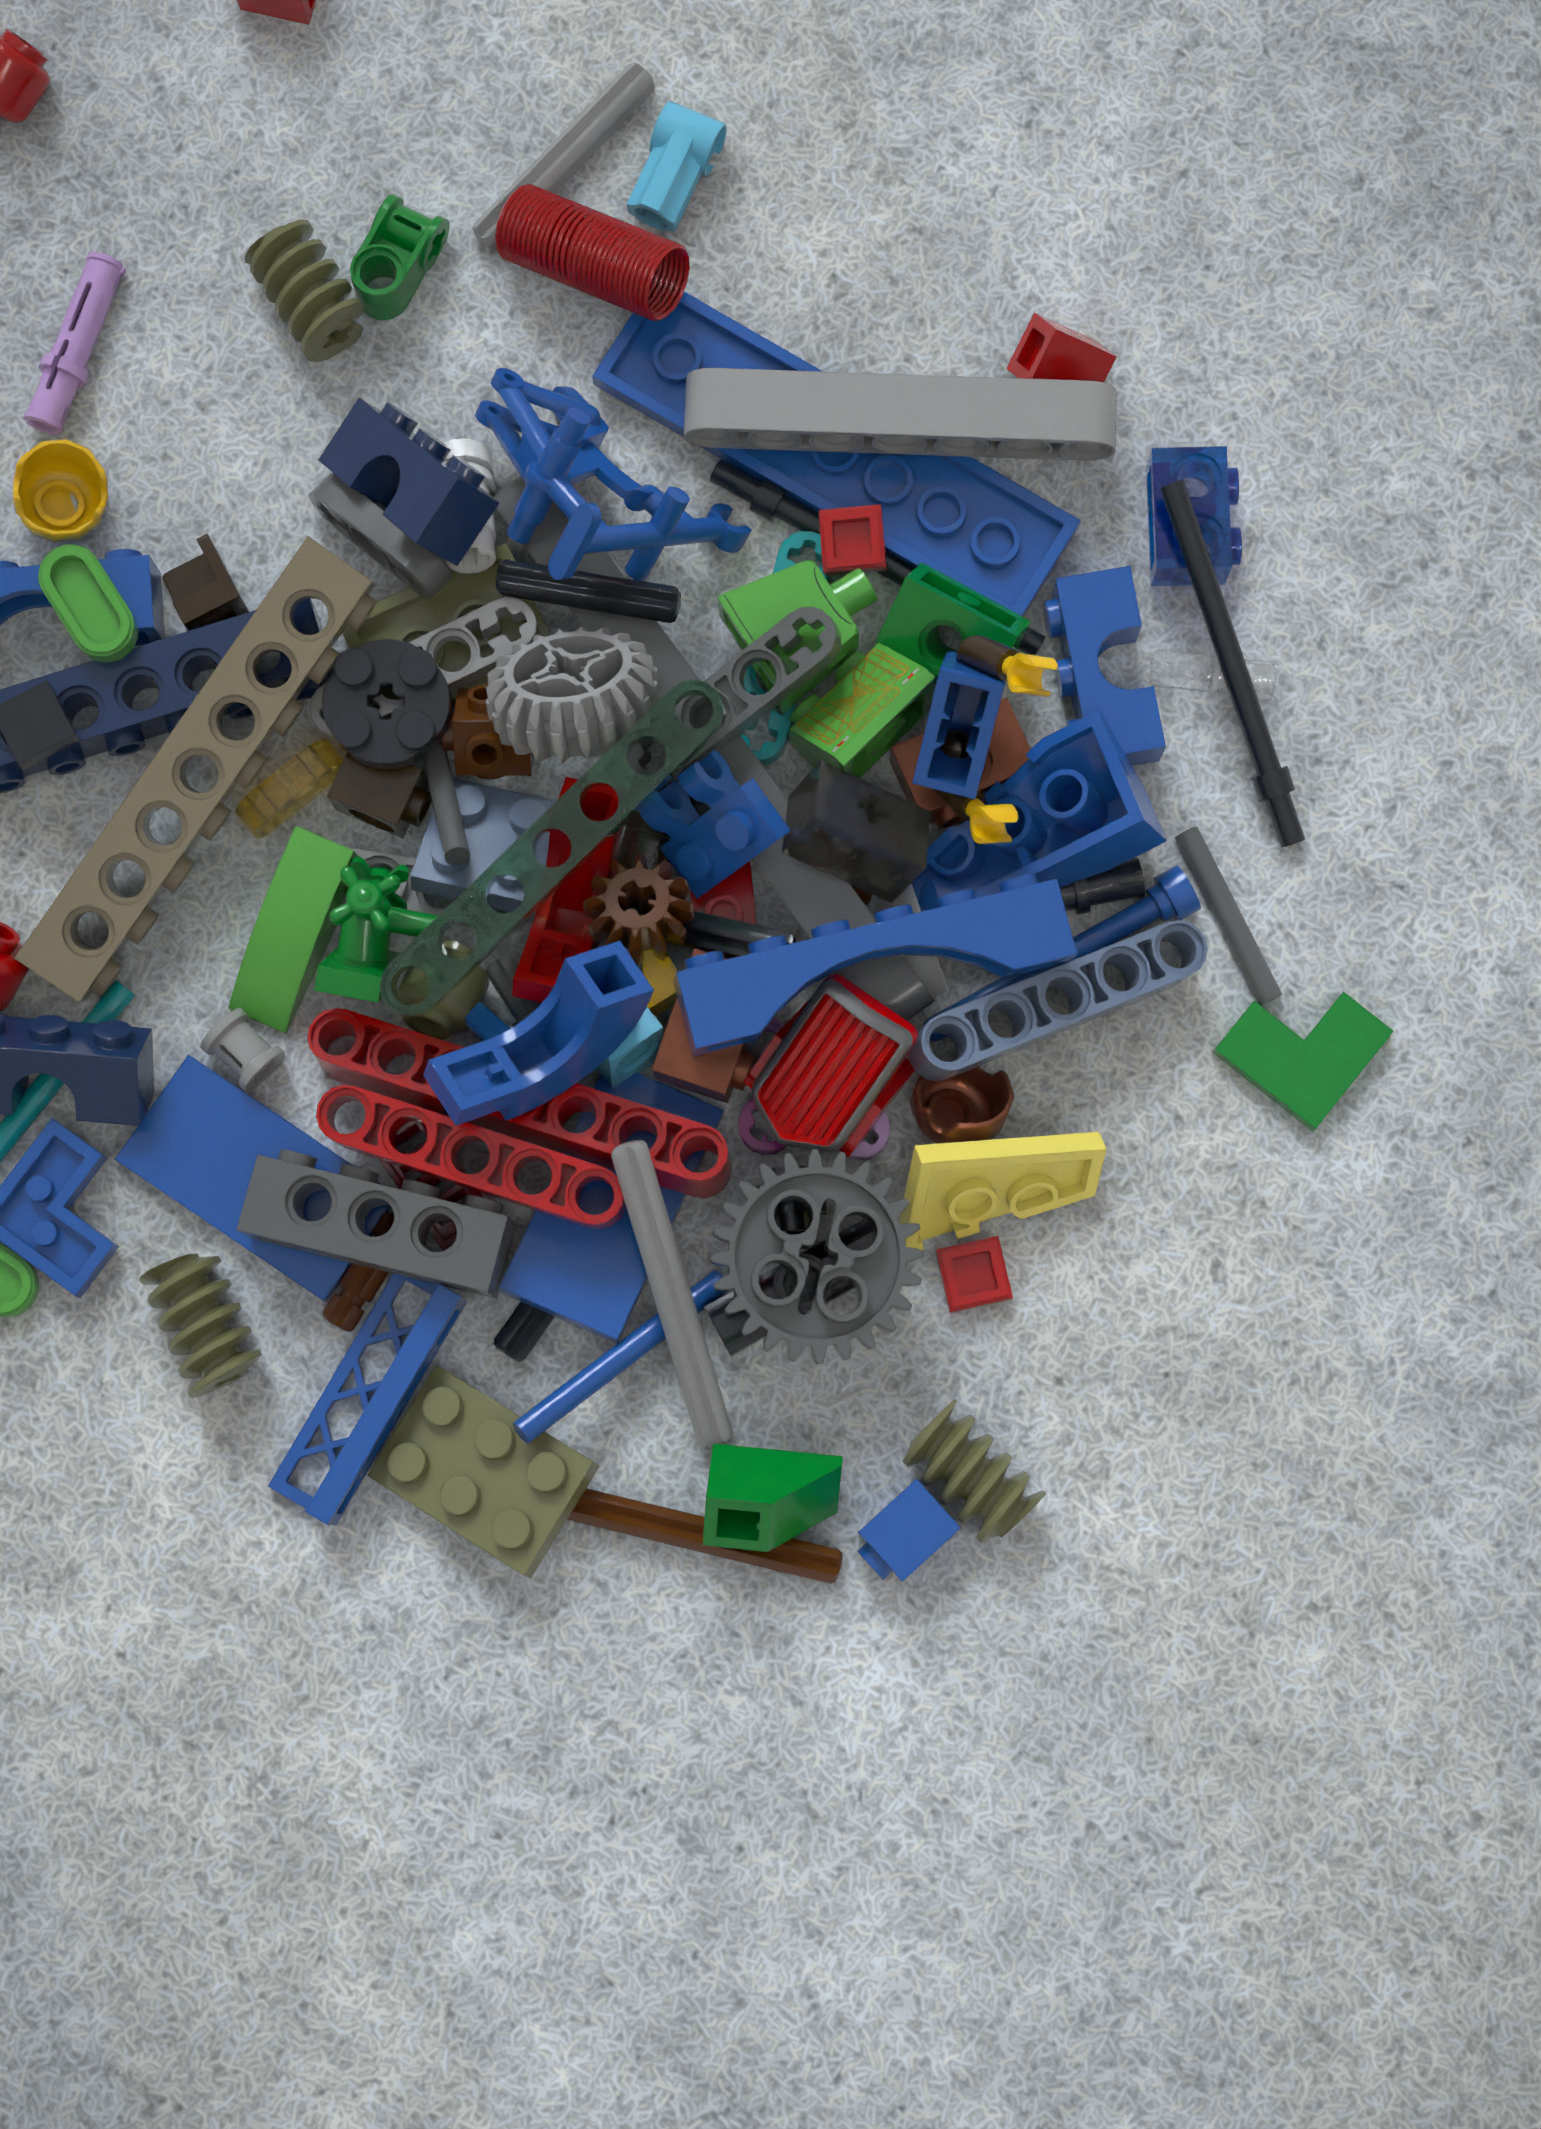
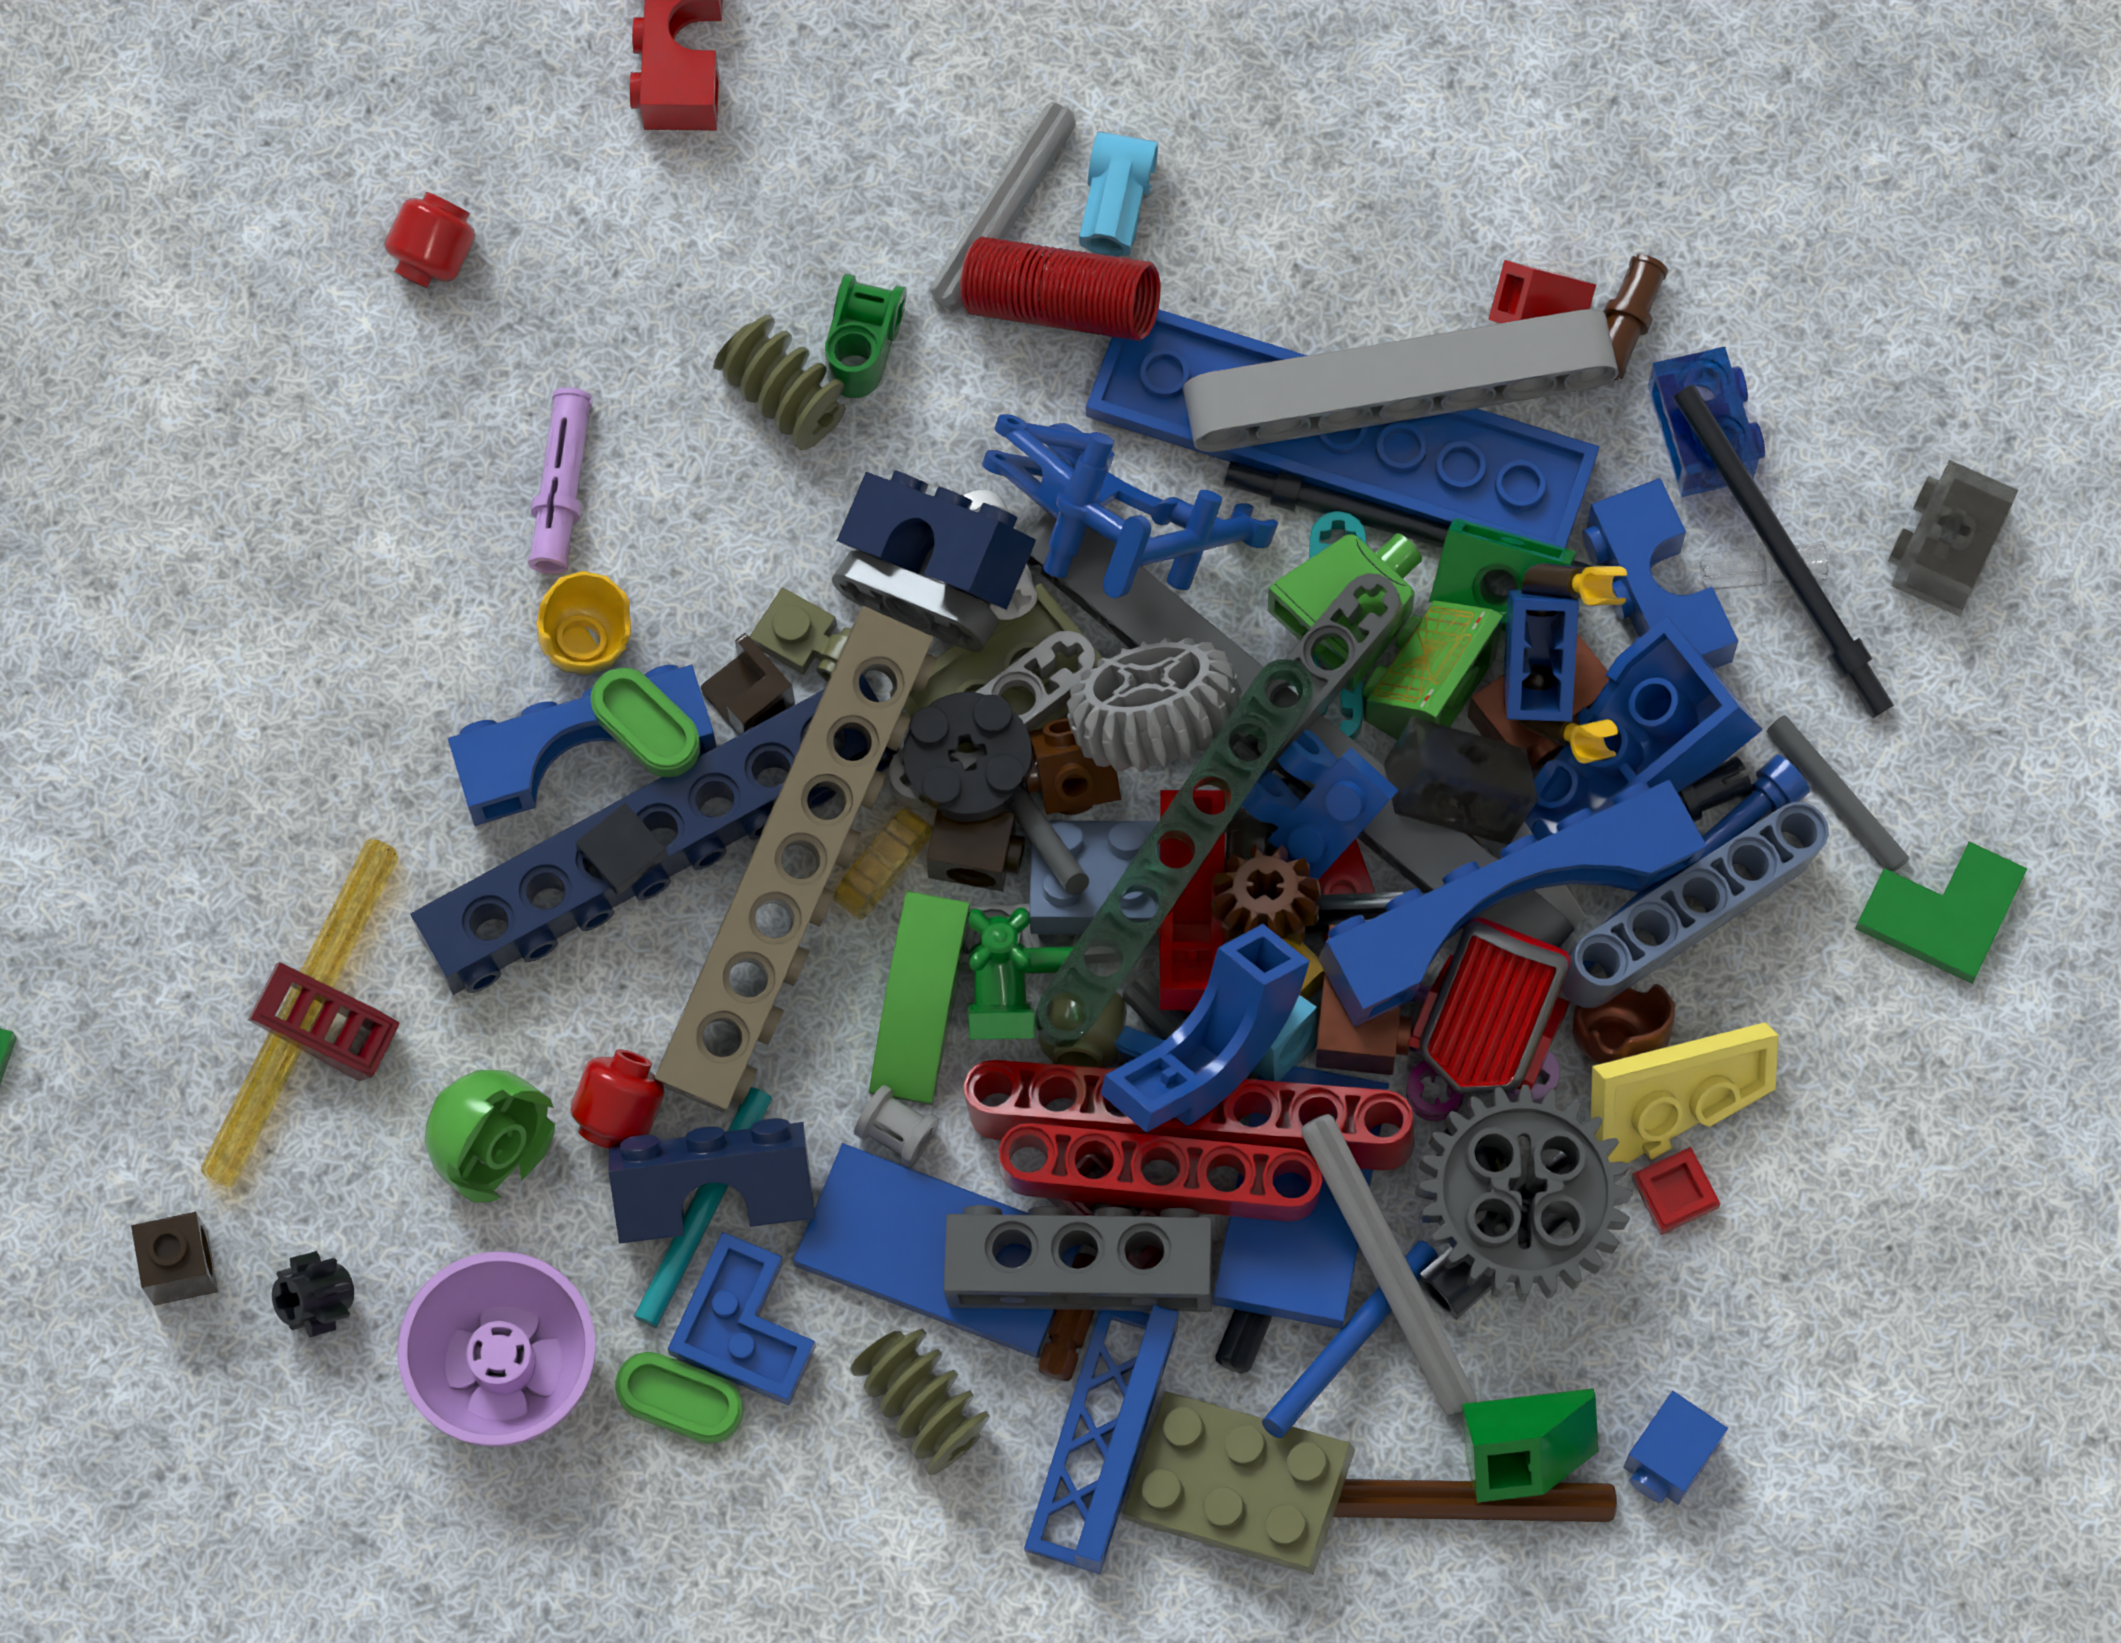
camera: 15 degrees left, 10 degrees down
(262, 539) = (799, 633): none -> olive plate
(589, 591) = (1139, 608): black axle -> none
(852, 539) = (1382, 508): red tile -> none
(971, 1474) = (1723, 1379): olive piece -> none
(1144, 390) = (1629, 312): none -> reddish brown pin
(1424, 653) = (1943, 570): none -> clear smoke brick

